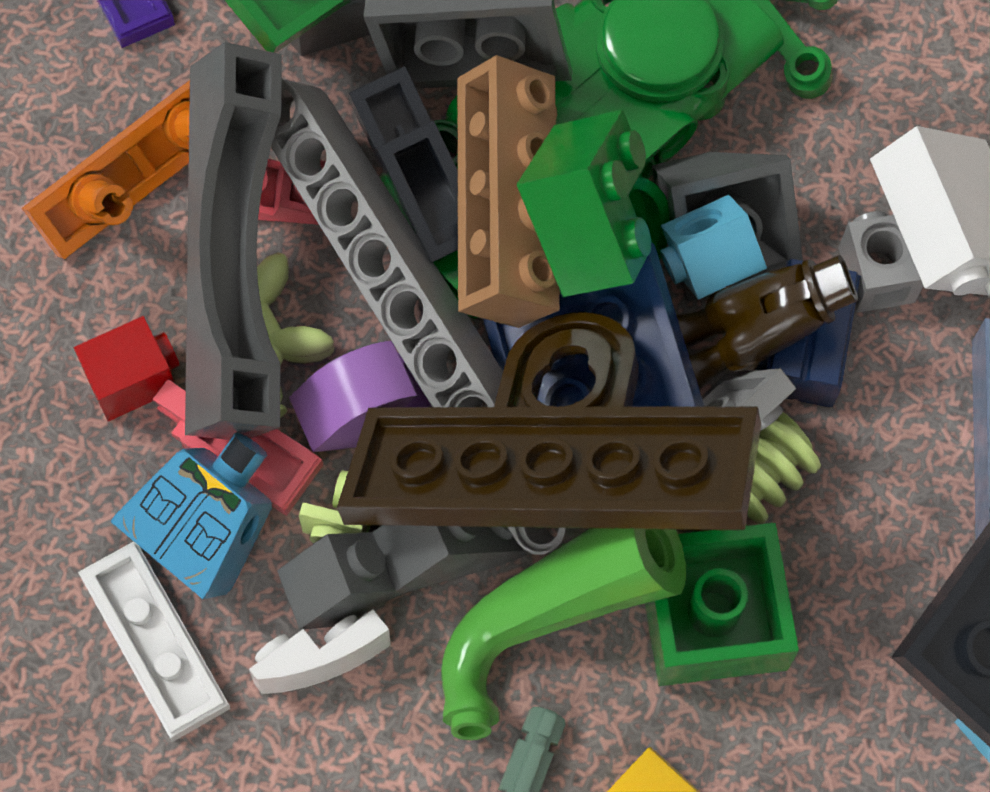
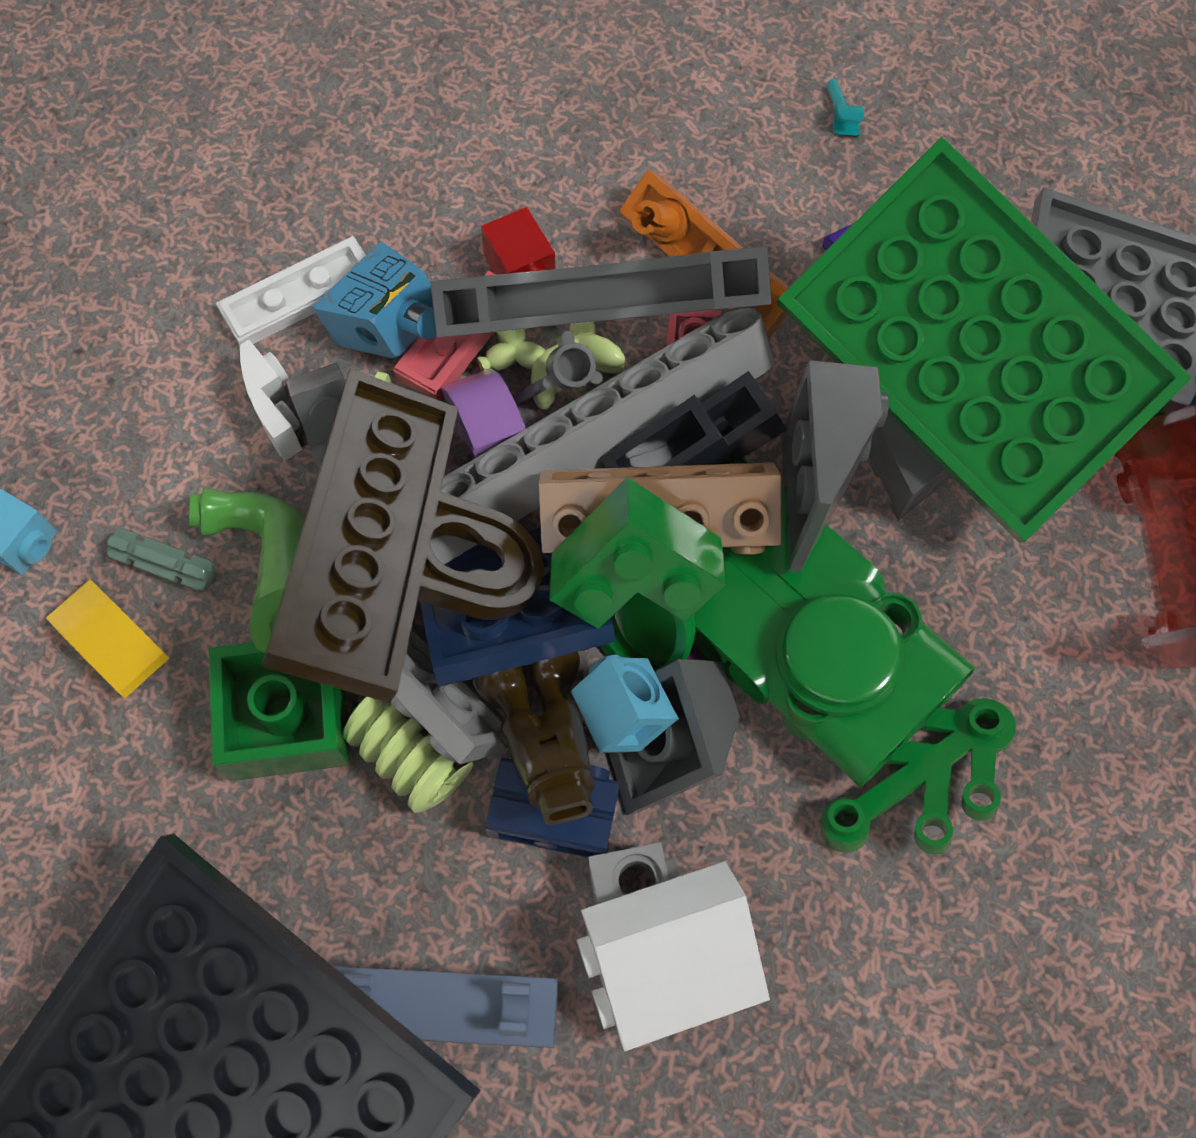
camera: 90 degrees right, 0 degrees up
(316, 293) = (566, 367): none -> dark grey plant

